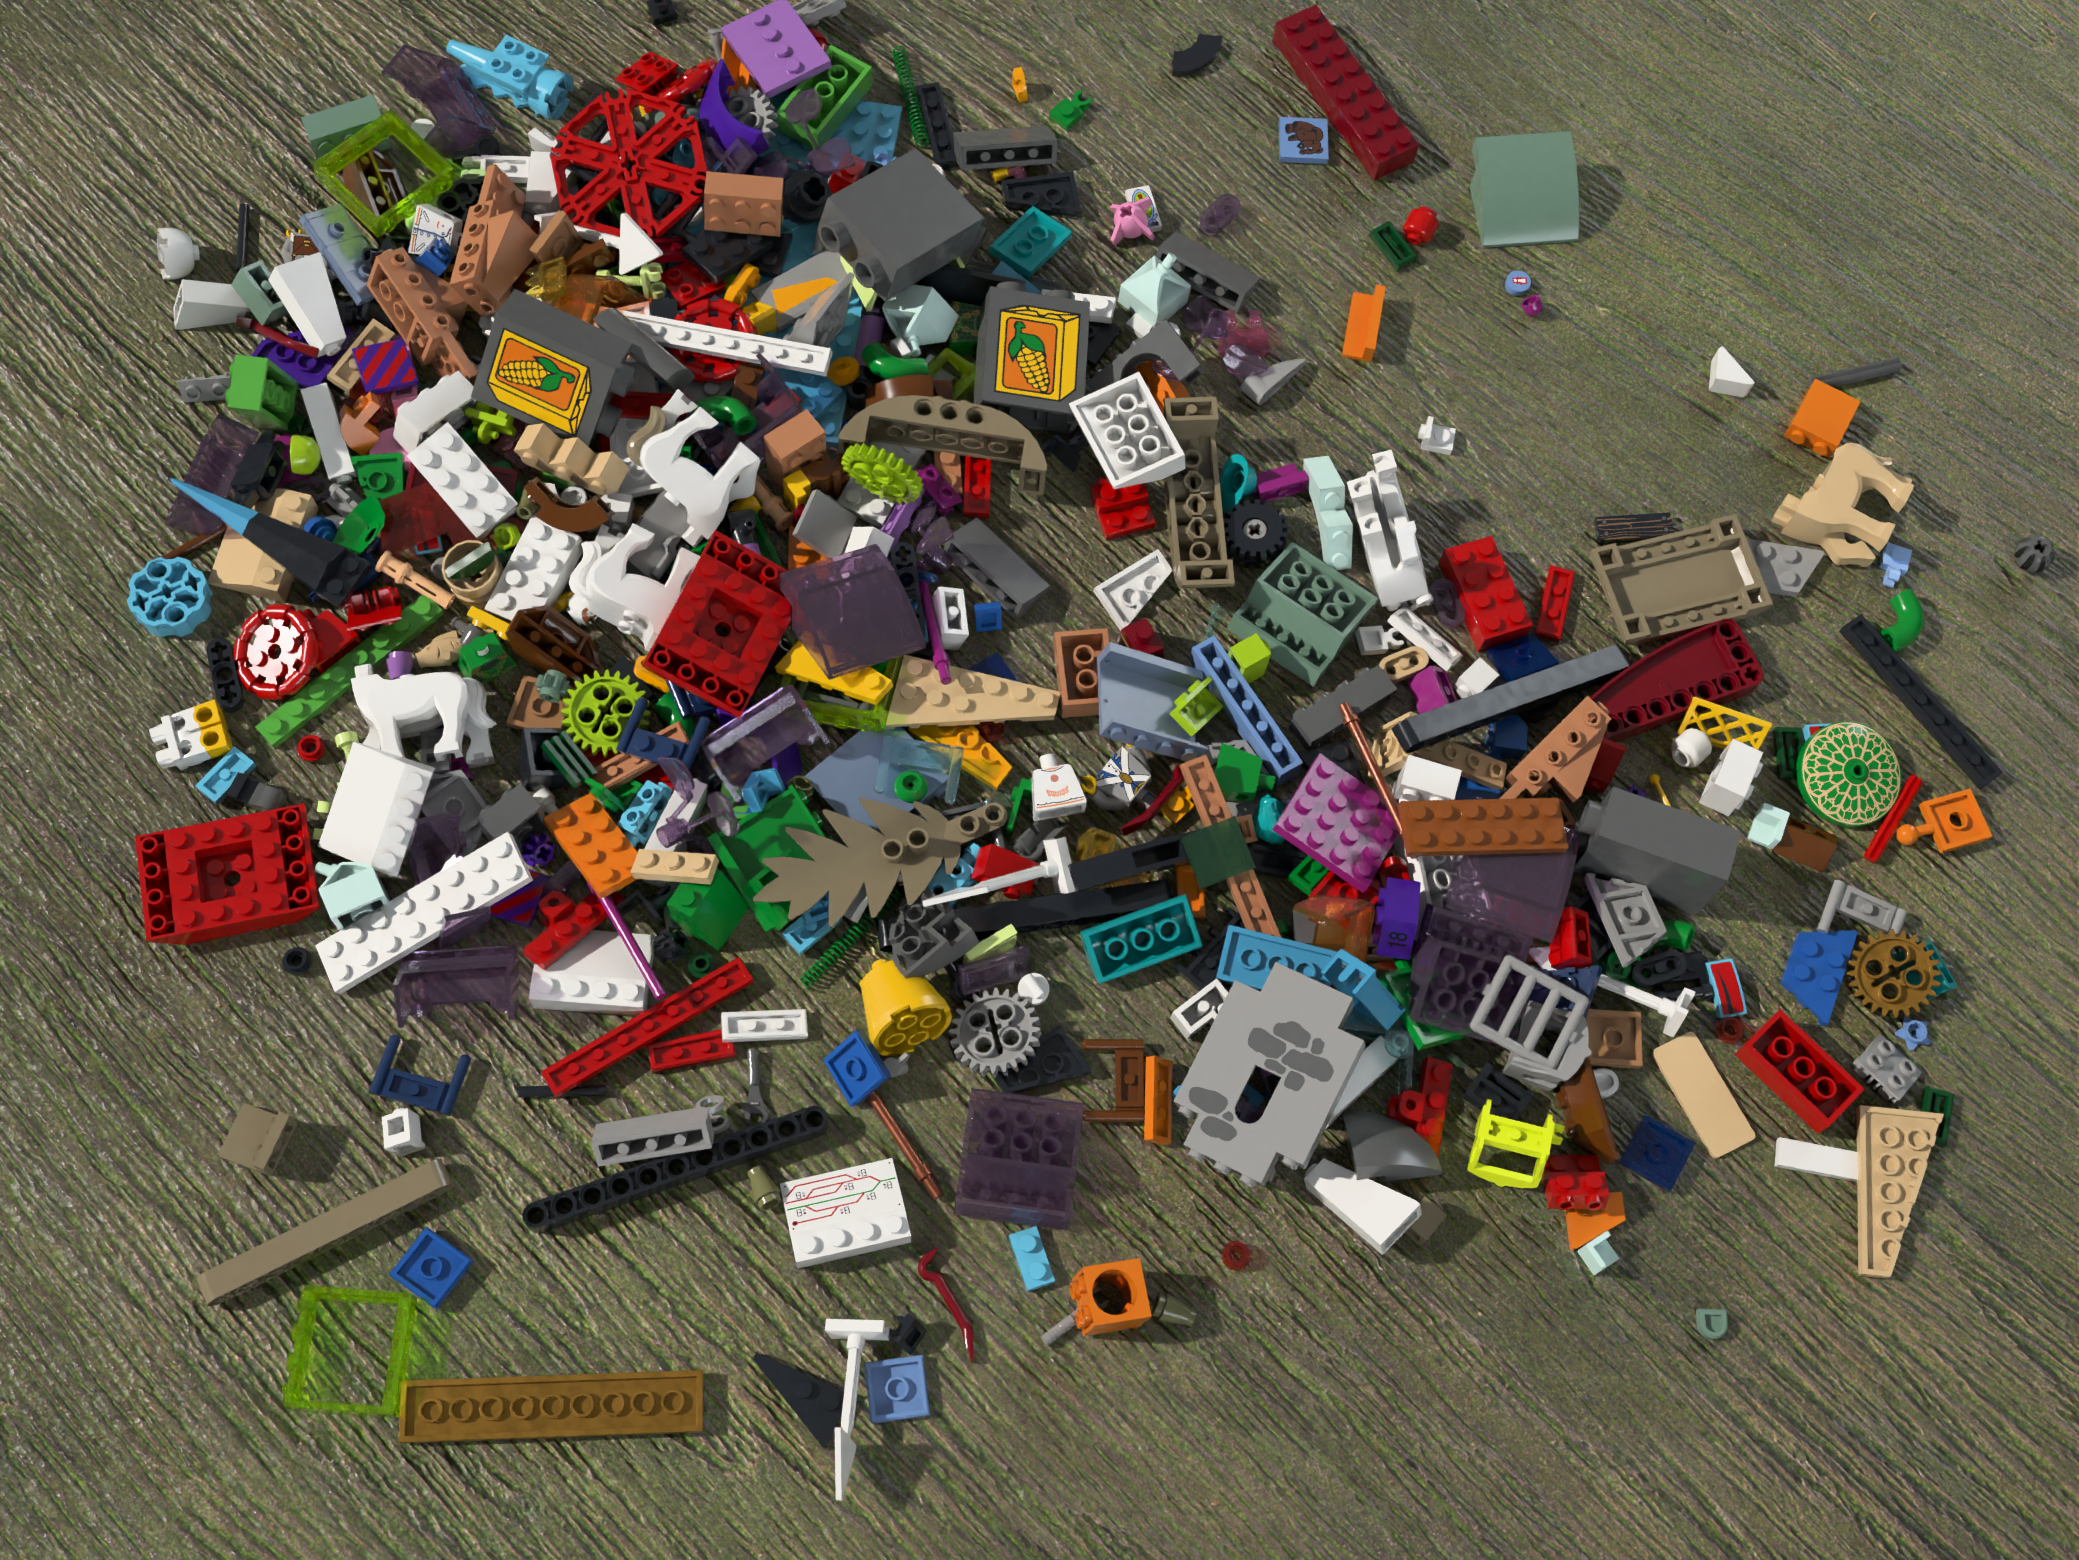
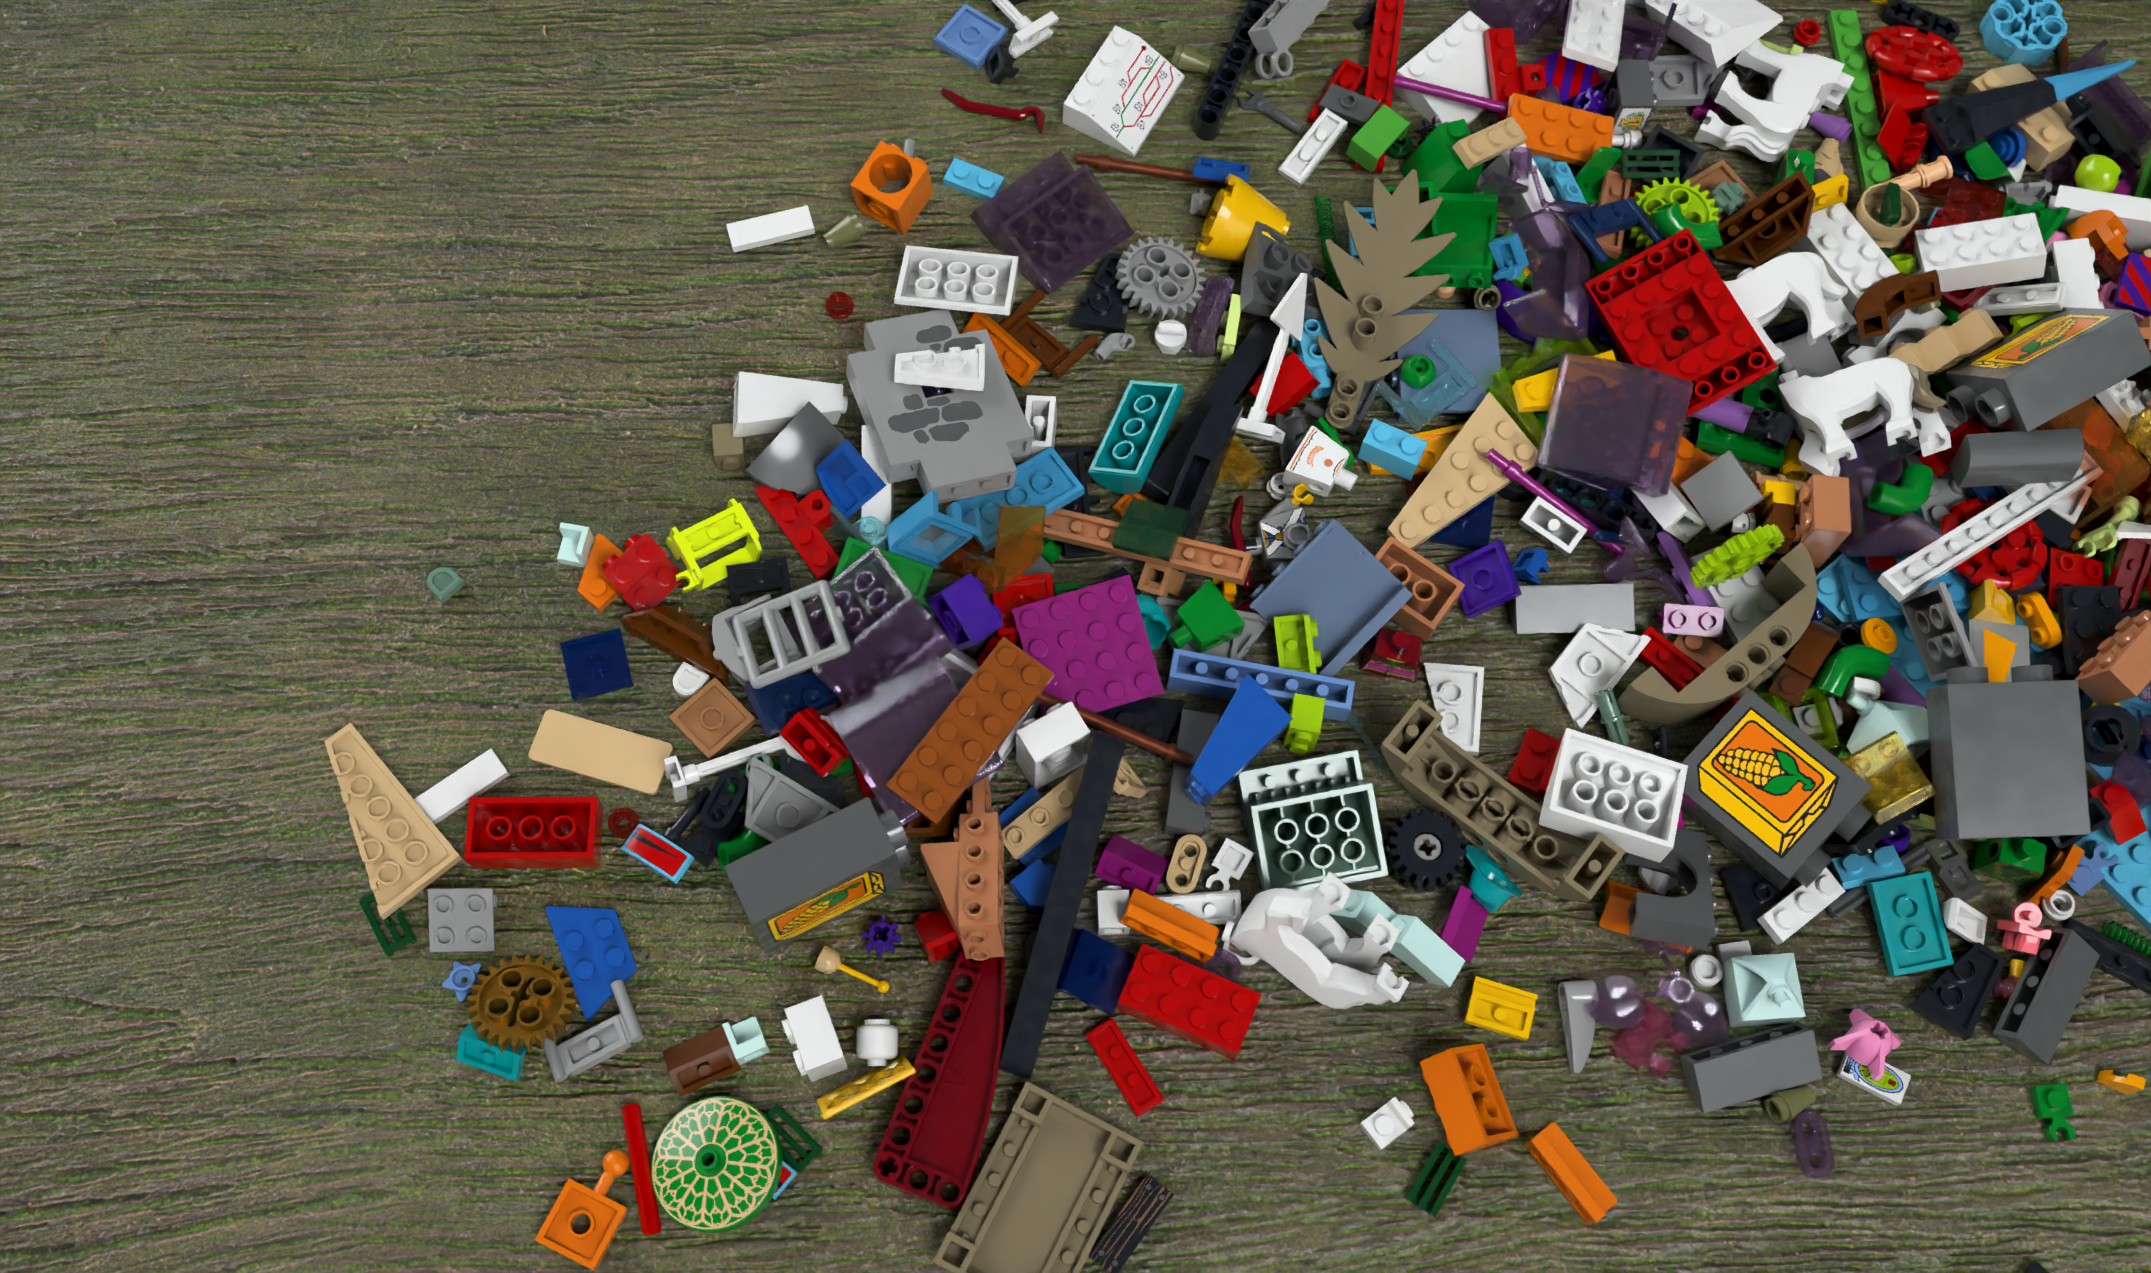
camera: 135 degrees right, 0 degrees up
(476, 430) = (2023, 299): none -> white tile
(625, 682) = (1671, 220): none -> green cylinder
(705, 1022) = (1349, 105): none -> dark grey plate
(723, 972) = (1377, 137): none -> bright green panel
(964, 287) = (1893, 774): none -> clear yellow bracket
(977, 178) = (2022, 933): none -> coral hips
(992, 756) = (1392, 449): none -> medium azure piece
(999, 217) = (1964, 920): none -> white slope
(1027, 524) = (1592, 663): none -> white wing
(1029, 632) = (1487, 579): none -> dark purple tile
(1054, 490) = (1611, 716): none -> sand green axle
(1074, 1028) = (1114, 343): none -> light grey arm
(1082, 826) = (1276, 493): none -> white plate
(1121, 763) = (1296, 534): none -> light grey plate
(1151, 1165) = (957, 280): none -> white slope
(1208, 238) = (1787, 1104): none -> olive cone
(1222, 1374) = (770, 228): none -> white tile
(1246, 1082) = (947, 370): none -> white wing
(1307, 424) = (1500, 1008): none -> yellow plate
(1318, 674) = (1239, 738): none -> blue slope
(1379, 402) = (1468, 1098): none -> orange slope
(1384, 1085) = (848, 479): none -> blue plate
(1441, 385) = (1449, 1155): none -> dark green tile
(1457, 633) = (1170, 926): none -> orange panel

